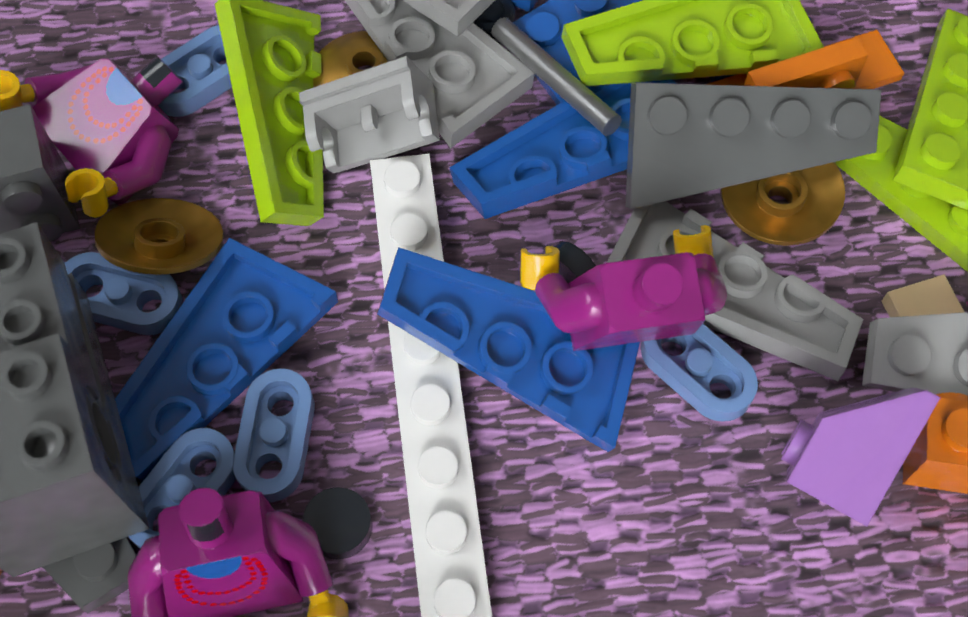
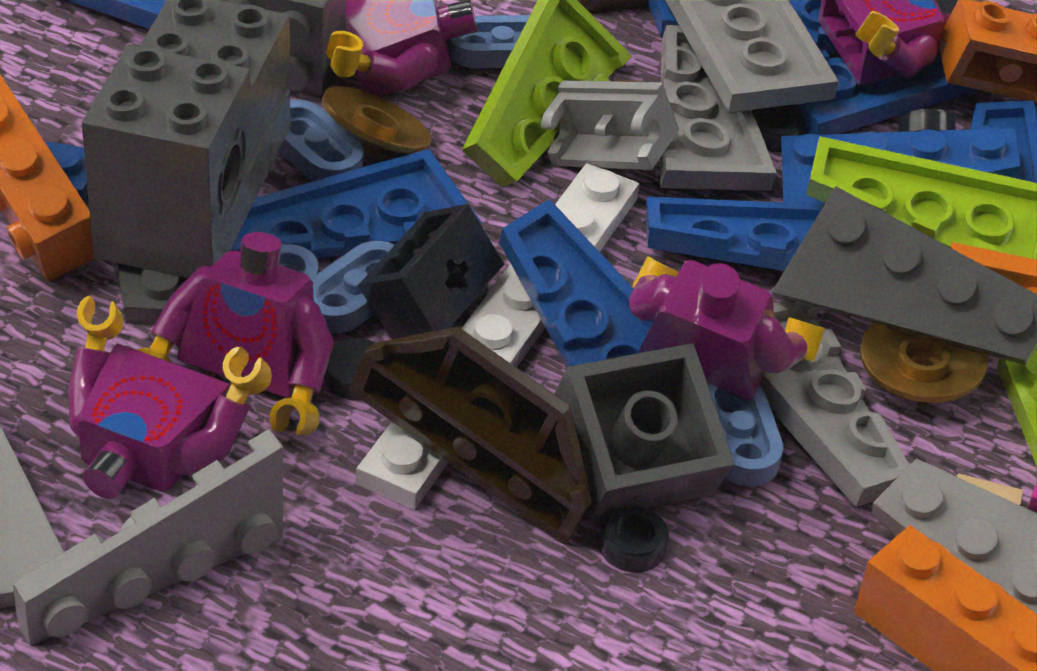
camera: 30 degrees right, 20 degrees down
(340, 387) = (432, 273): none -> black brick
(519, 533) = (482, 421): none -> dark brown wedge
(556, 76) = (789, 178): flat silver bar -> none
(650, 446) = (646, 429): none -> dark grey brick
(694, 540) = (633, 539): none -> black tile
(857, 450) = (816, 515): medium lavender slope -> none

